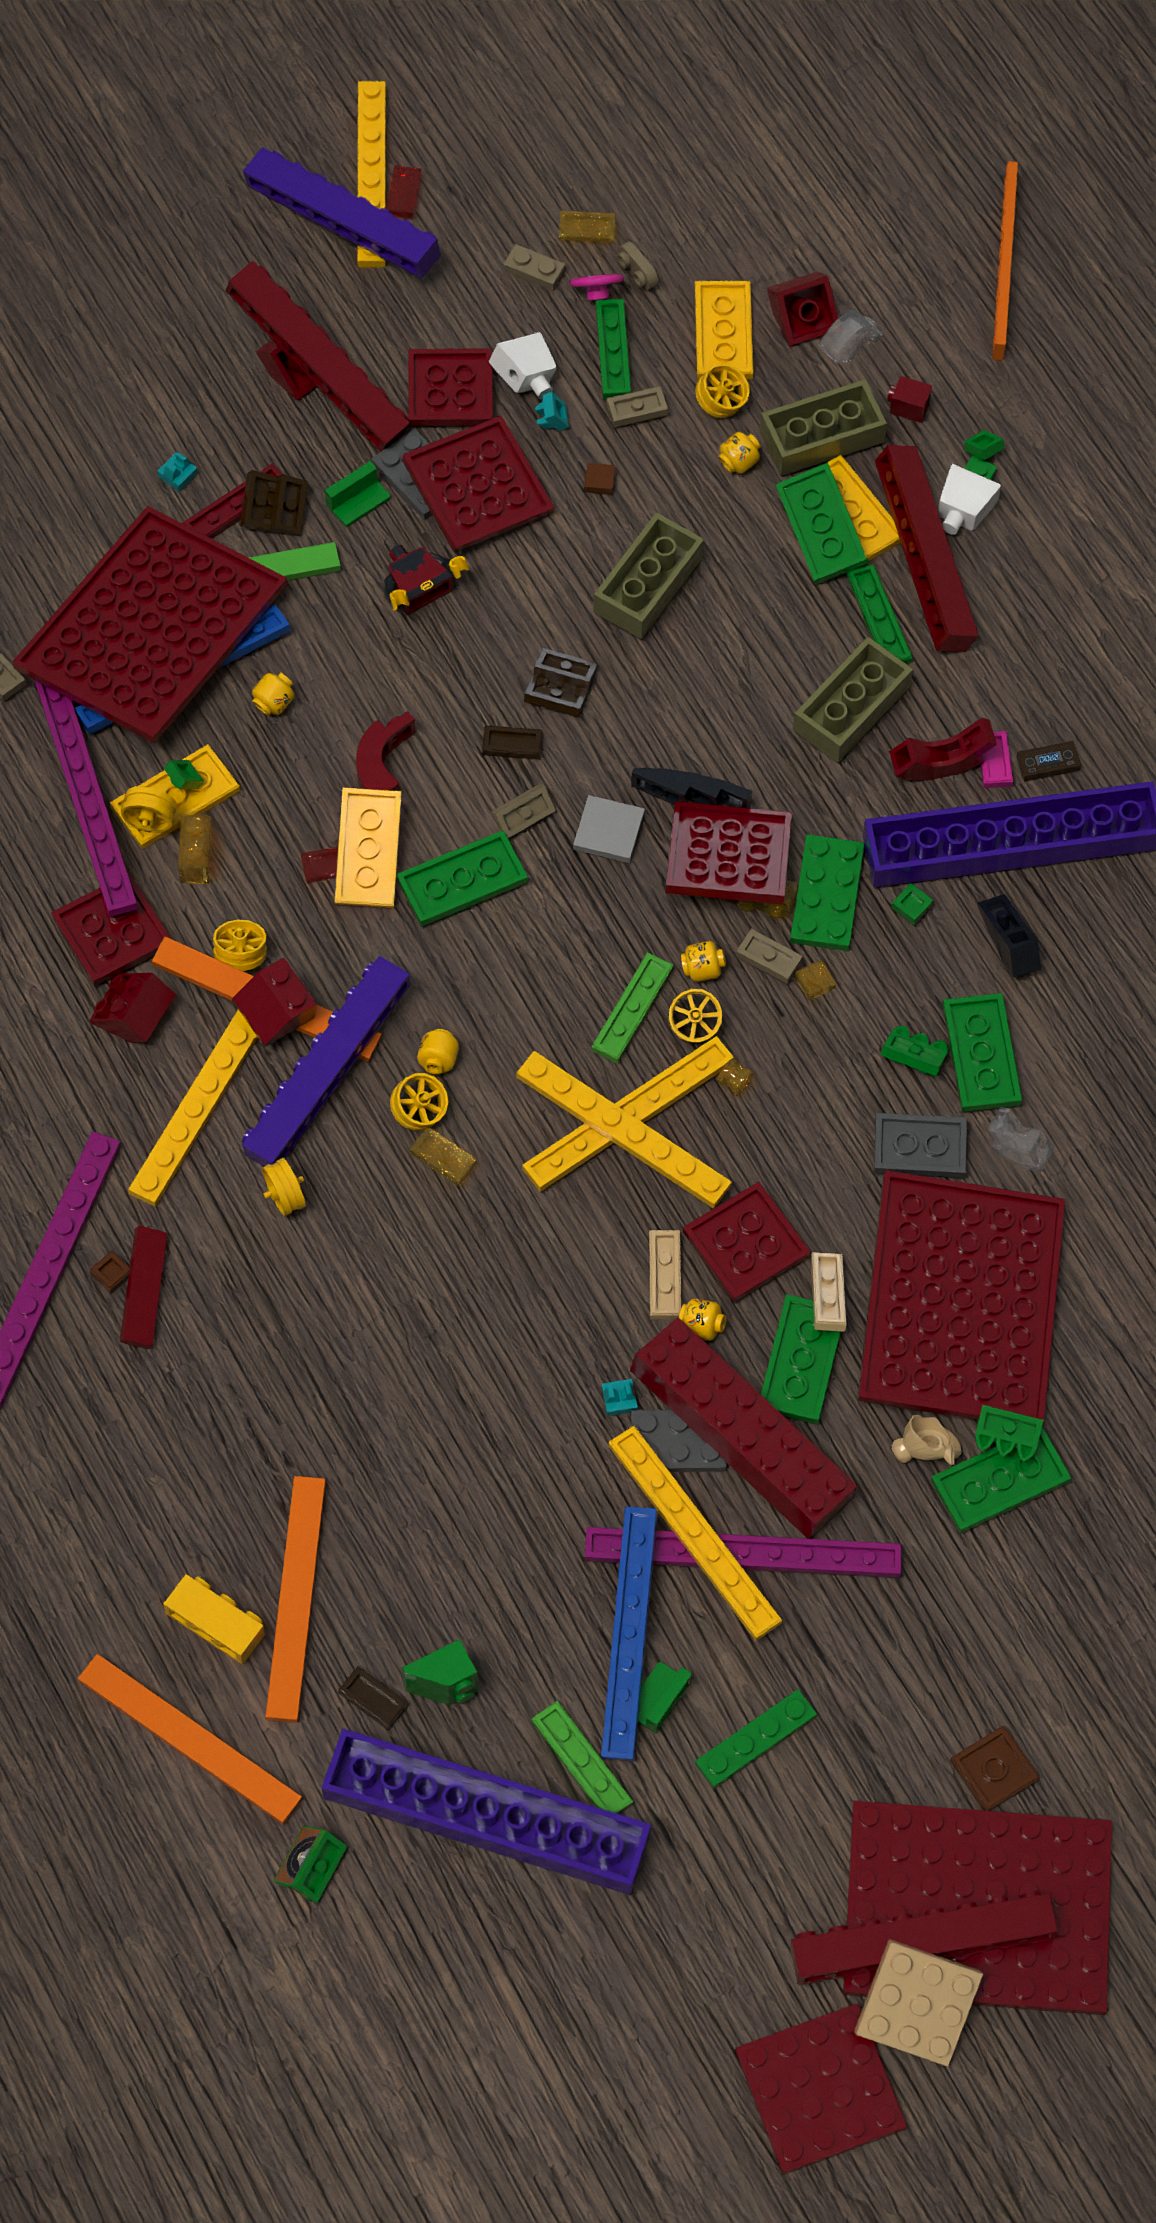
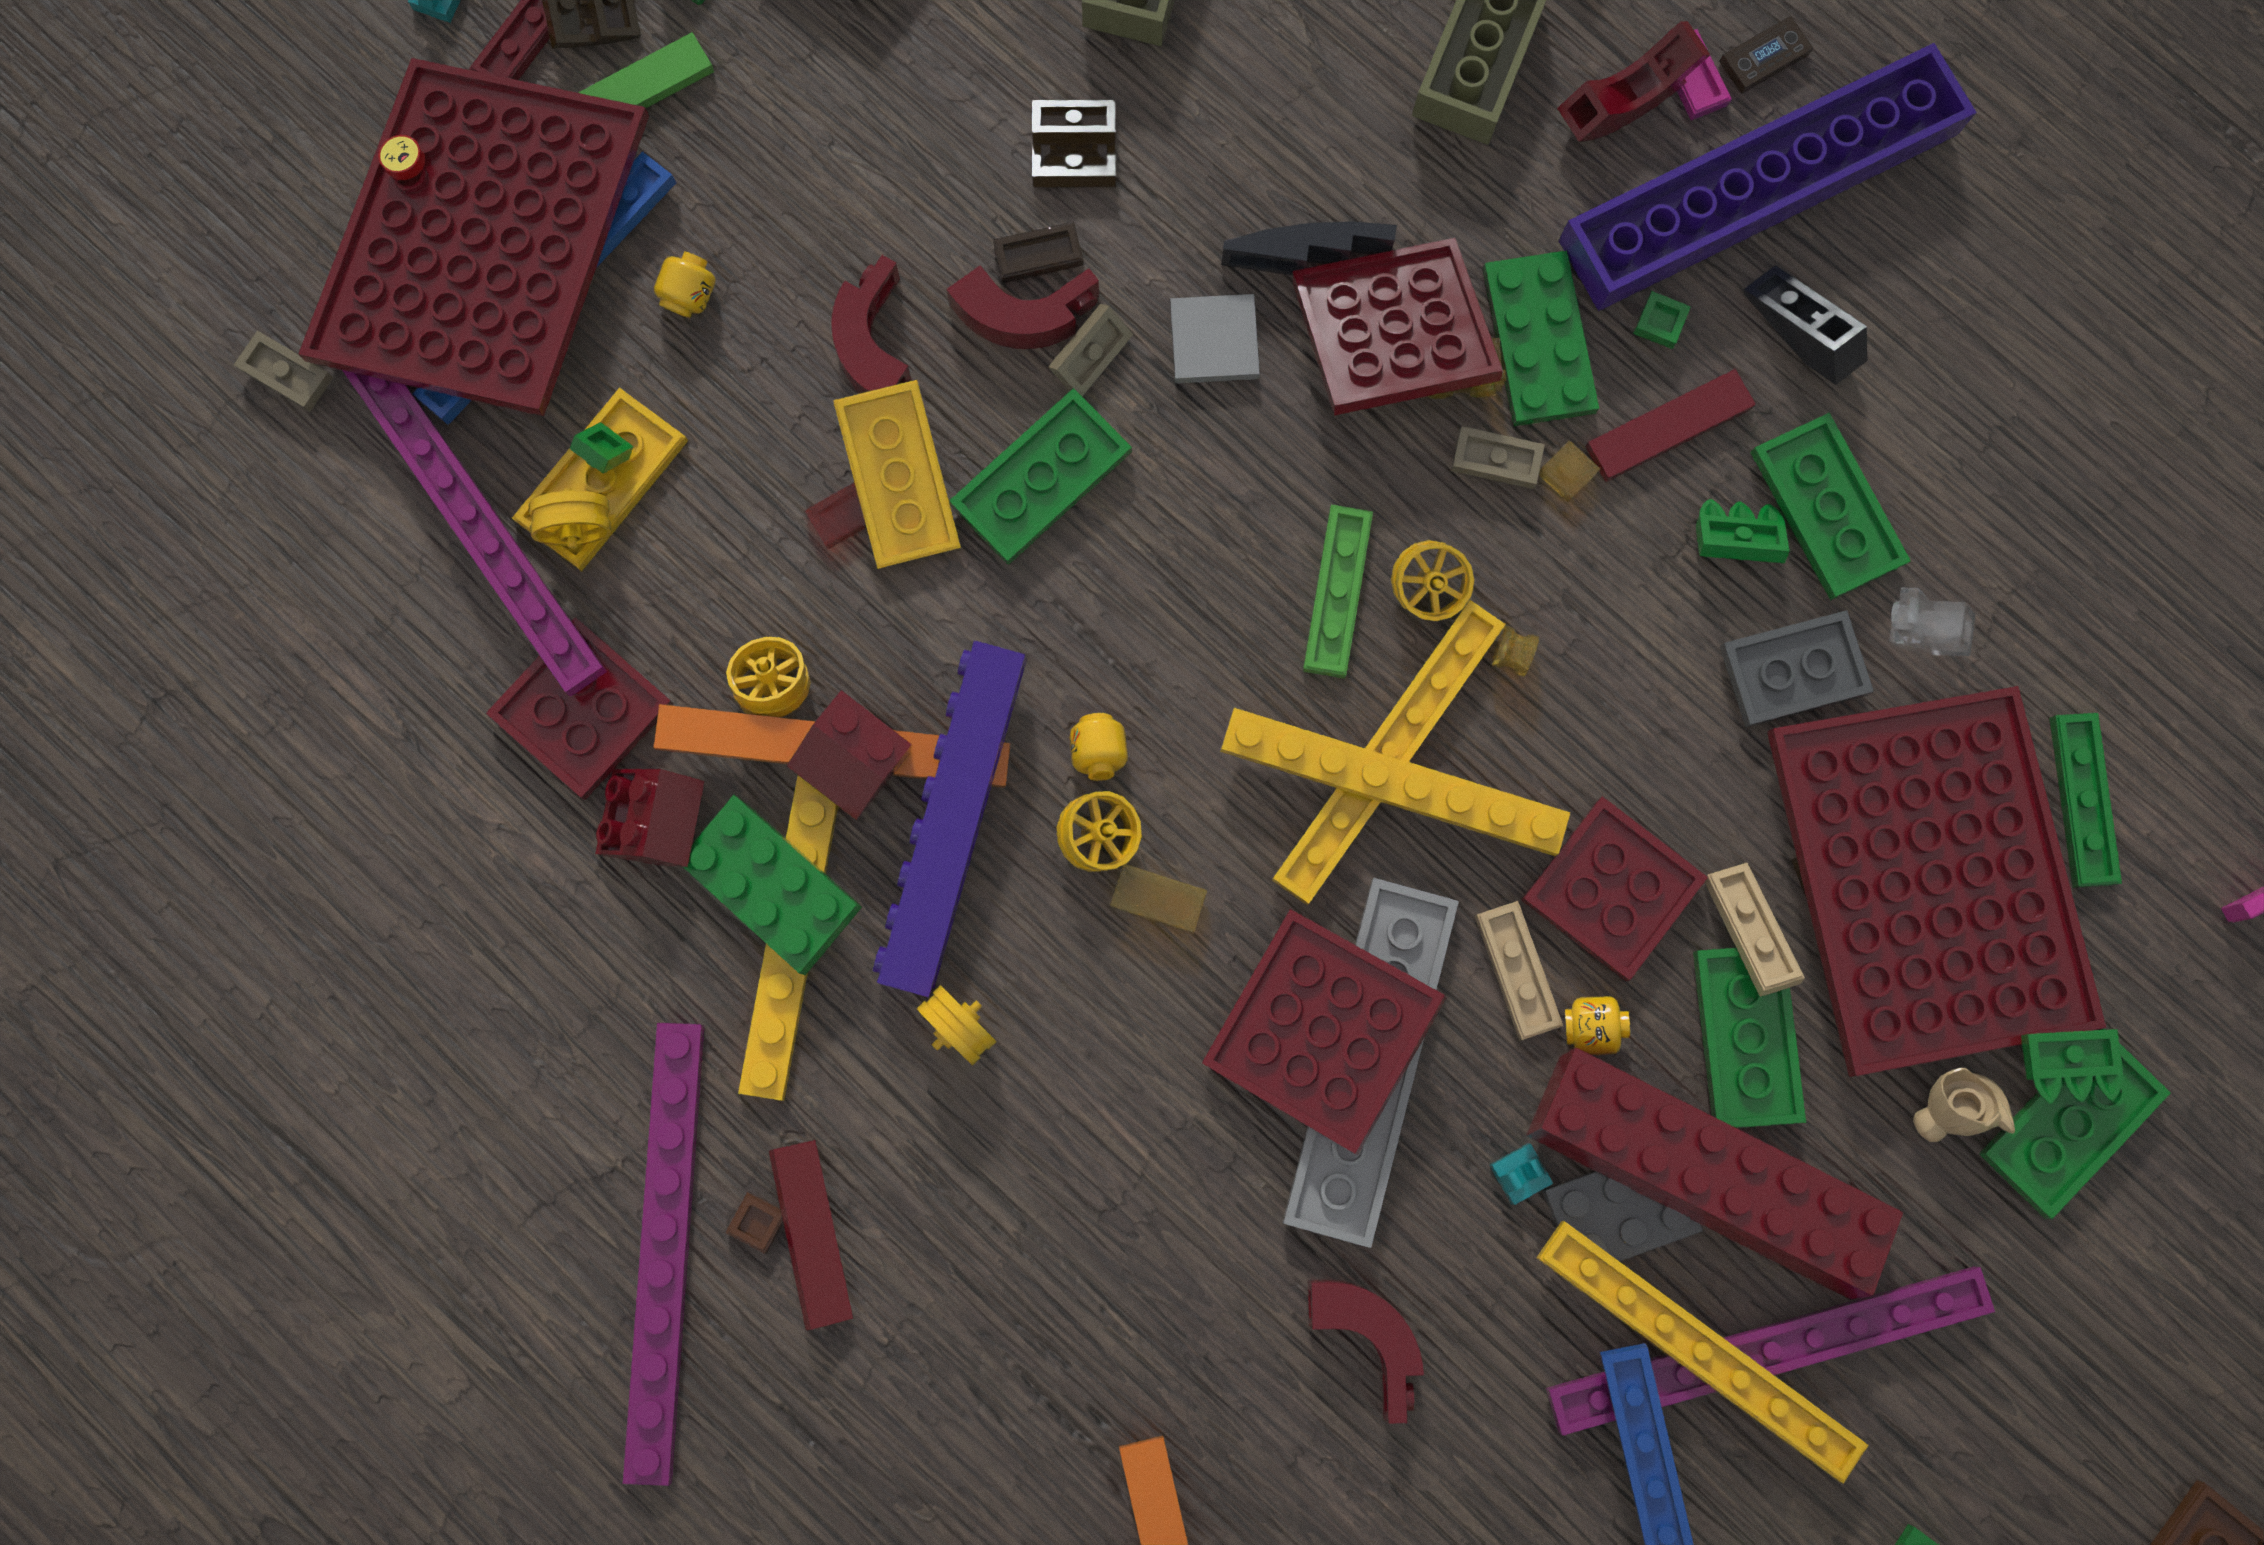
camera: 20 degrees left, 15 degrees up
(120, 563) = (401, 157): none -> tile
(195, 849) = (656, 552): clear yellow brick -> none
(195, 1068) = (770, 885): none -> green plate
(419, 577) = (828, 49): torso -> none
(480, 1441) = (1354, 1308): none -> dark red arch
(486, 781) = (1017, 321): none -> dark red arch
(519, 1262) = (1324, 1031): none -> dark red plate
(545, 1297) = (1332, 1186): none -> light grey plate
(703, 961) = (1413, 494): yellow head -> none
(894, 971) = (1670, 425): none -> dark red tile
(1087, 1287) = (2085, 800): none -> green tile

